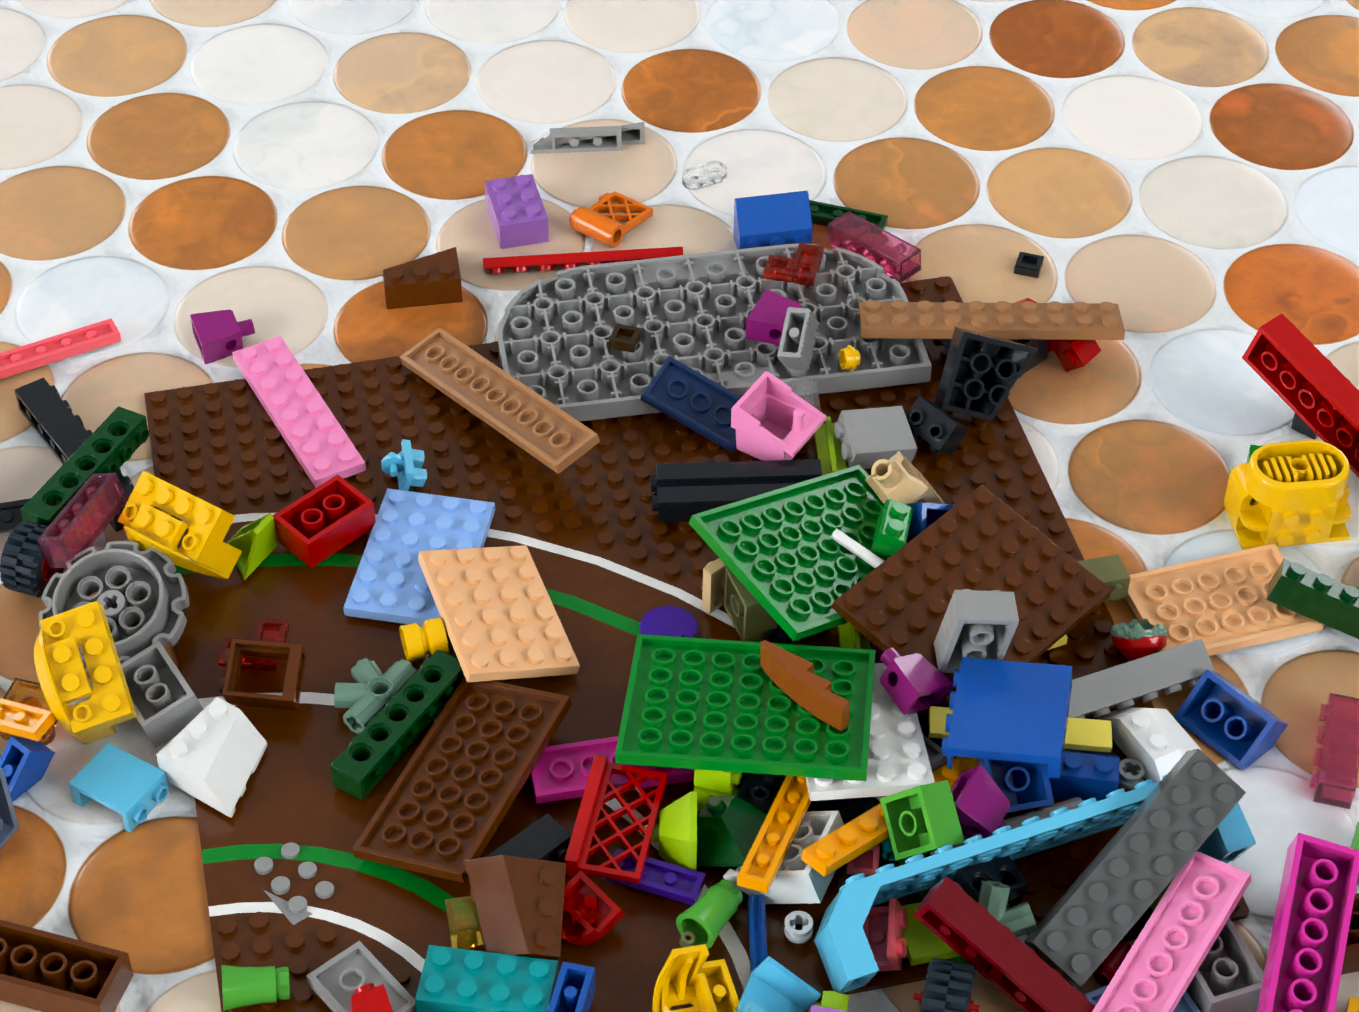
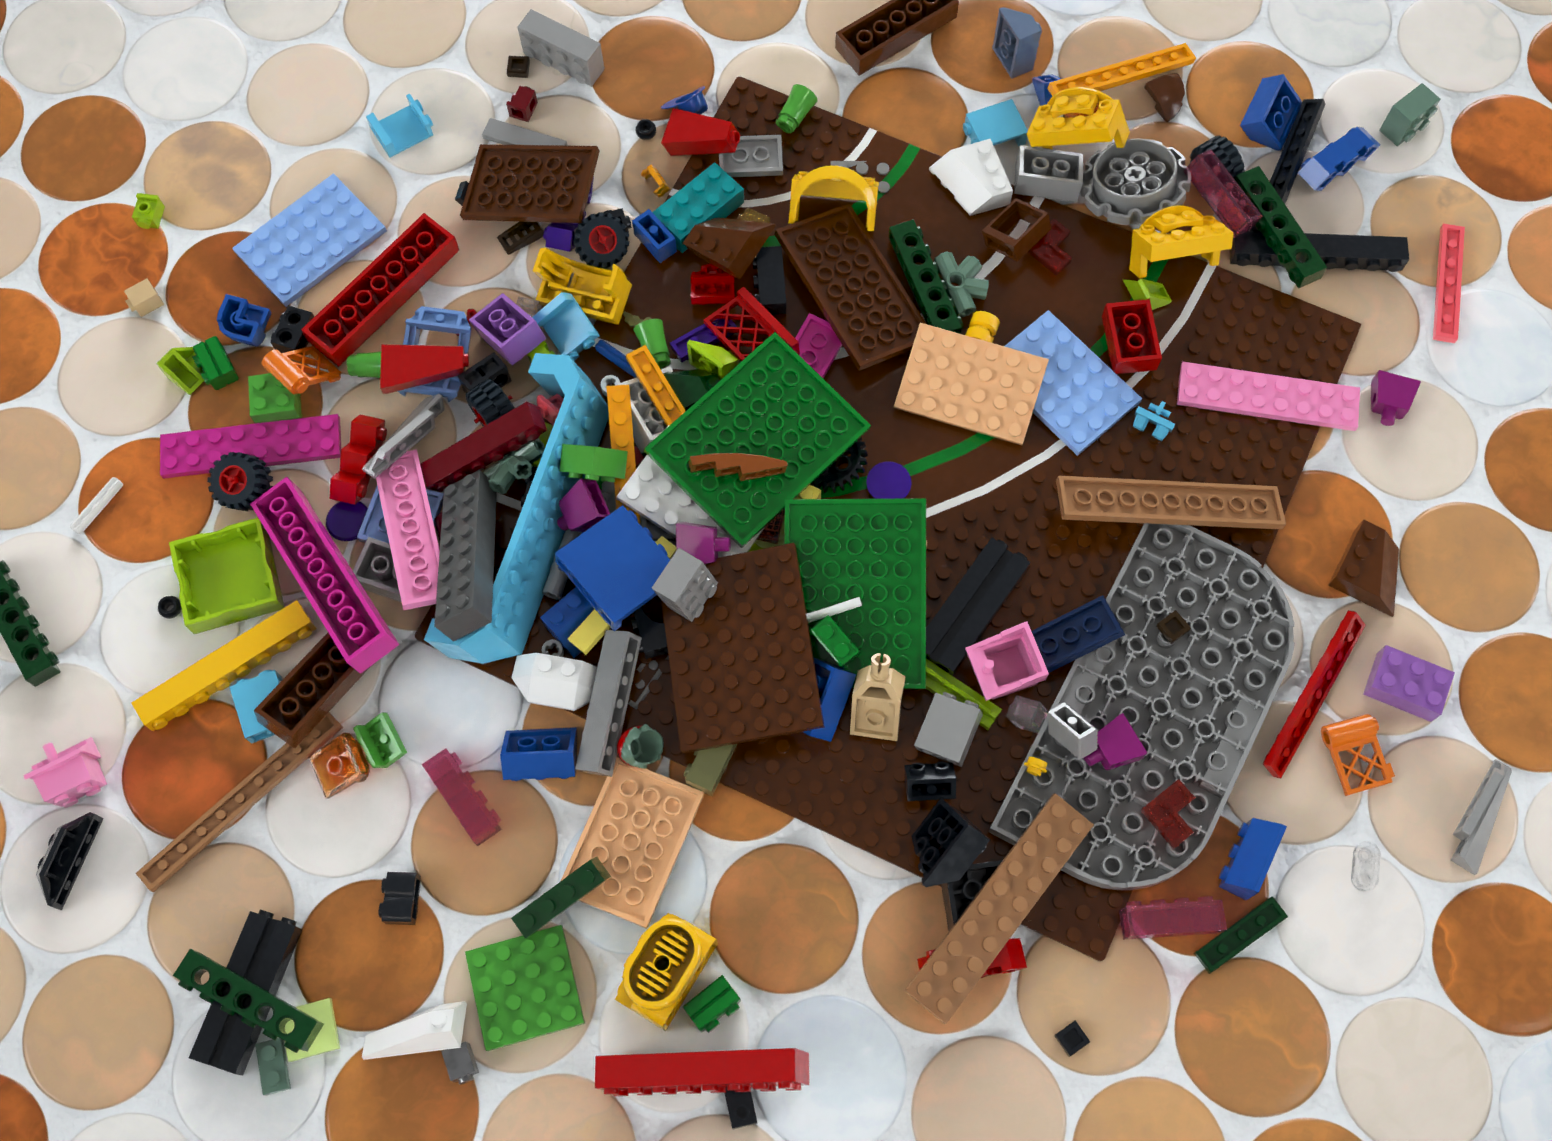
camera: 130 degrees right, 25 degrees up
(341, 851) = (834, 183): none -> yellow piece

